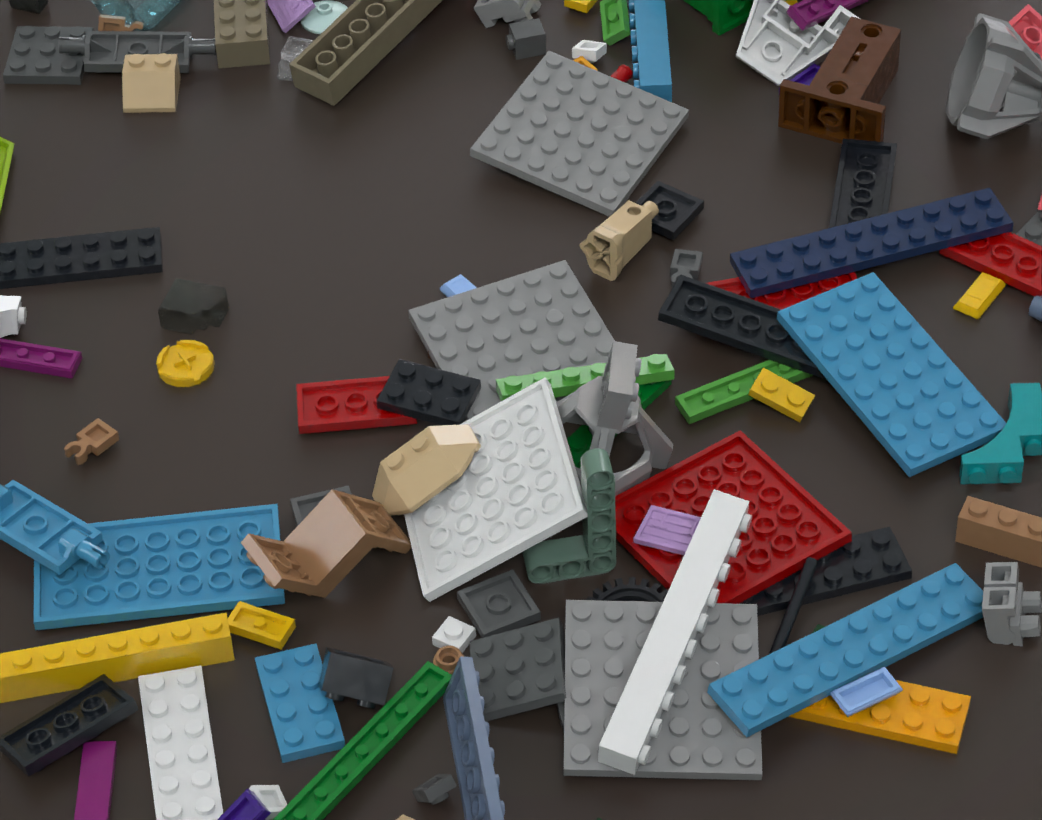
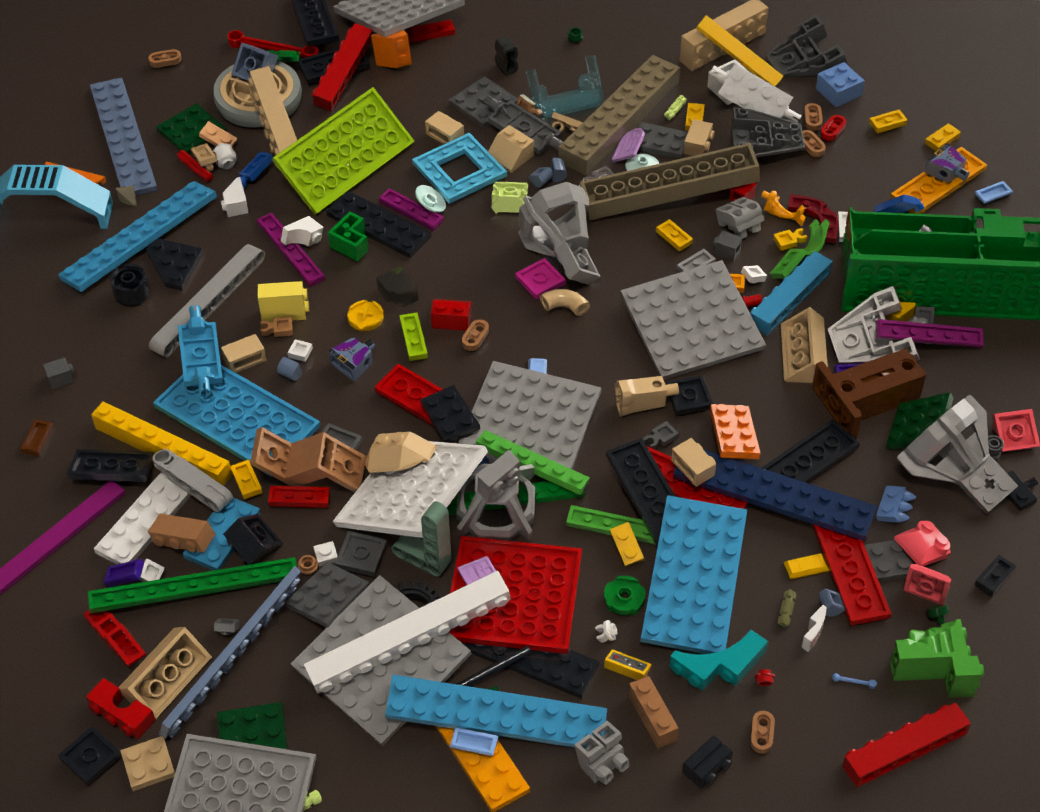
camera: 40 degrees right, 5 degrees up
(39, 109) = (443, 128): none -> tan brick
(63, 150) = (429, 166): none -> medium azure plate
(68, 292) = (349, 237): none -> green brick
(70, 405) = (283, 300): none -> light yellow brick
(87, 491) = (243, 353): none -> tan brick
(100, 219) = (411, 209): none -> magenta tile
(116, 192) = (430, 198): none -> light aqua dish
(152, 448) = (300, 350): none -> white plate
(165, 474) = (289, 369): none -> sand blue brick
(196, 16) = (561, 120): none -> tan plate
(202, 664) = (192, 480): none -> light grey piece
(210, 134) = (508, 196): none -> yellowish green slope
(222, 92) = (541, 176): none -> sand blue brick
(229, 414) = (352, 357): none -> sand blue torso
(235, 74) = (558, 169): none -> sand blue brick
(259, 729) = (181, 533): none -> medium nougat brick
(276, 347) = (413, 336): none -> lime plate
(294, 295) = (451, 314): none -> red slope
(342, 123) = (560, 238): none -> light grey plate
(349, 299) = (473, 338): none -> medium nougat plate
(349, 599) = (299, 496): none -> red plate
(353, 196) = (540, 278): none -> dark pink plate
(411, 198) = (565, 298): none -> tan cylinder
(453, 63) = (674, 235): none -> yellow plate
(512, 75) = (699, 259): none -> light grey plate
(728, 89) = (803, 345): none -> tan slope
(762, 211) = (734, 431): none -> orange plate
(768, 260) = (693, 462): none -> tan brick
(837, 459) = (621, 605): none -> green plate
(862, 488) = (609, 631): none -> white plate
(921, 511) = (626, 665): none -> yellow slope
(935, 82) = (915, 417): none -> dark green plate
(993, 174) = (894, 504): none -> medium blue plate
(1011, 346) = (787, 608): none -> olive axle

